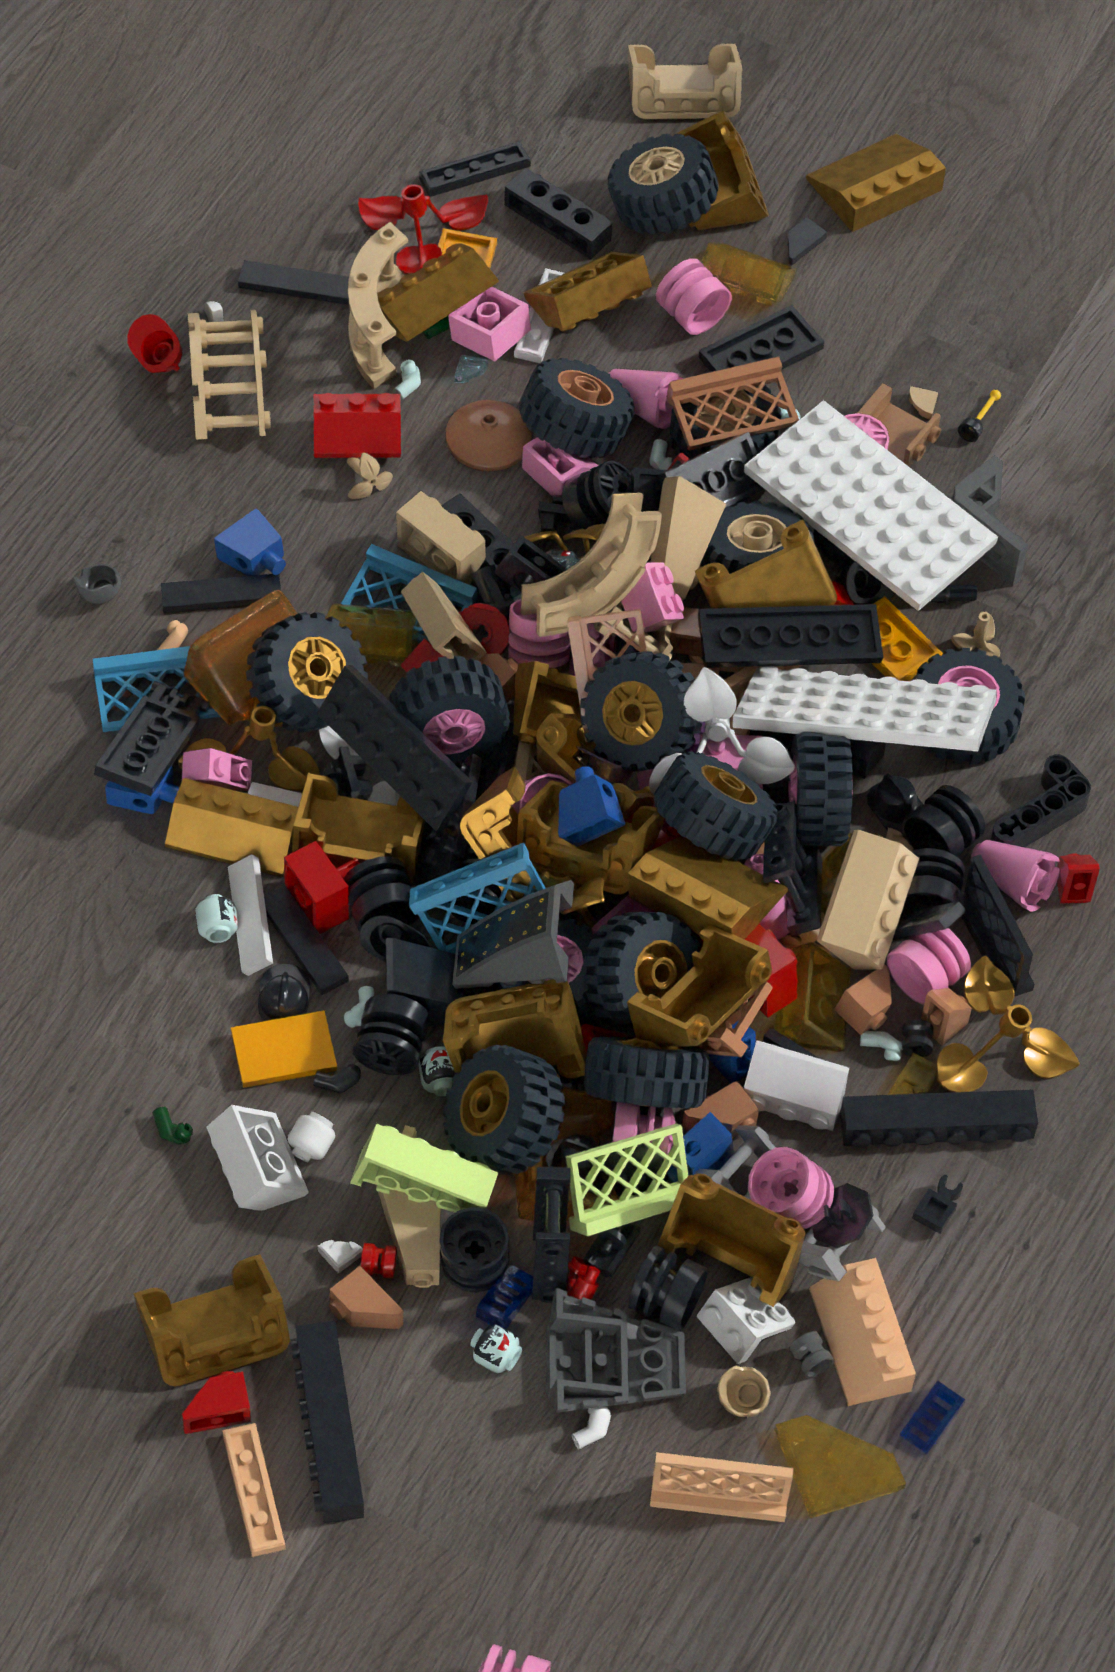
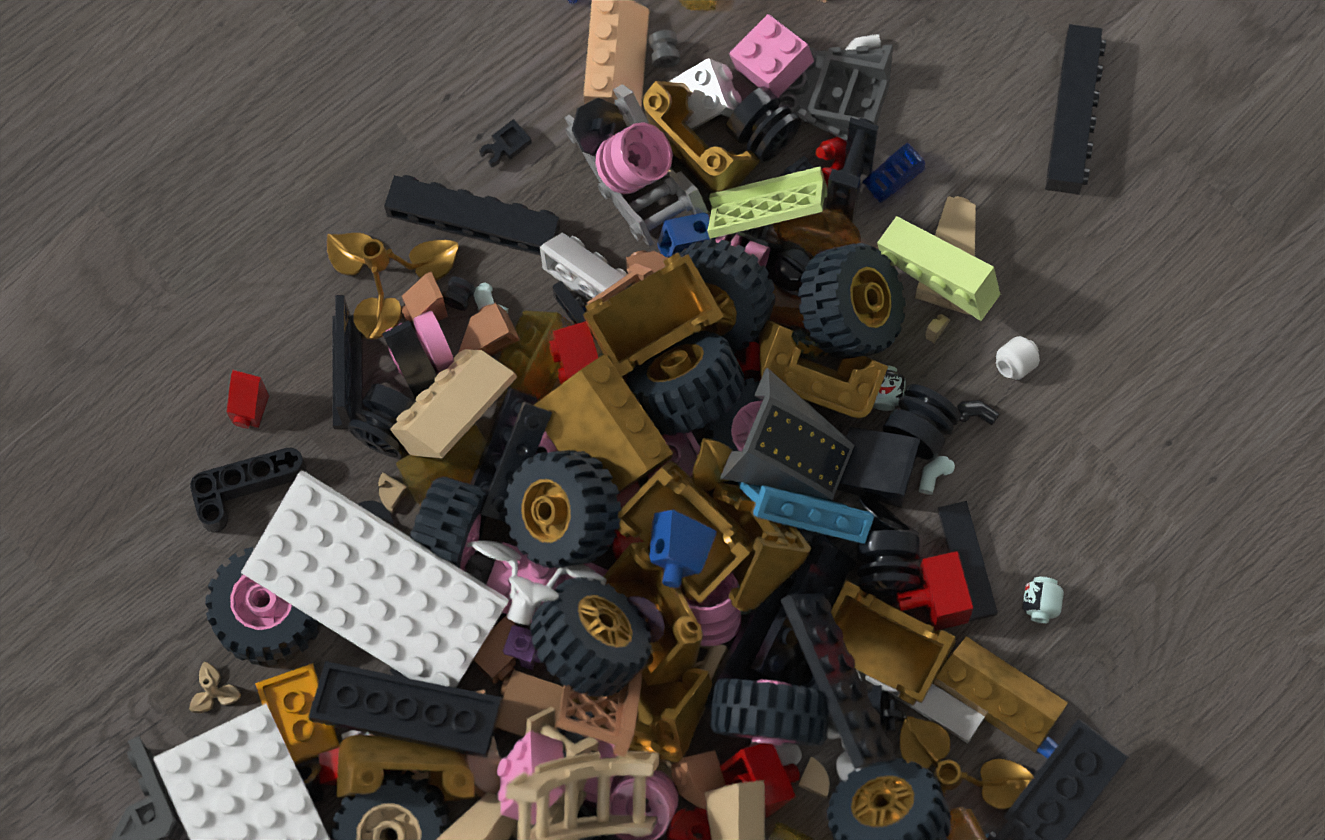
camera: 155 degrees left, 15 degrees up
(169, 1131) = (1137, 407): dark green arm -> none
(217, 769) = (1002, 754): bright pink slope -> none
(217, 1327) = (1149, 218): pearl gold windscreen -> none
(218, 1404) = (1159, 148): red slope -> none
(251, 915) = (1009, 596): white tile -> none
(253, 1490) = (1148, 79): light nougat tile -> none
(256, 1158) = (1070, 352): white slope -> none
(283, 992) = (999, 513): black piece -> none
(283, 1049) = (1016, 455): light orange tile -> none
(340, 1253) = (1021, 254): white tile -> none
(364, 1302) = (1016, 198): nougat slope -> none
(371, 1258) = (992, 231): red wheel -> none
(469, 1233) = (915, 191): black wheel -> none
(496, 1348) = (919, 129): light aqua head -> none
(687, 1365) = (772, 56): none -> bright pink brick
(743, 1391) = (730, 30): tan hair -> none
(915, 1077) = (476, 263): clear yellow tile -> none
(945, 822) = (349, 476): black wheel -> none
(1020, 871) = (299, 421): bright pink cone -> none

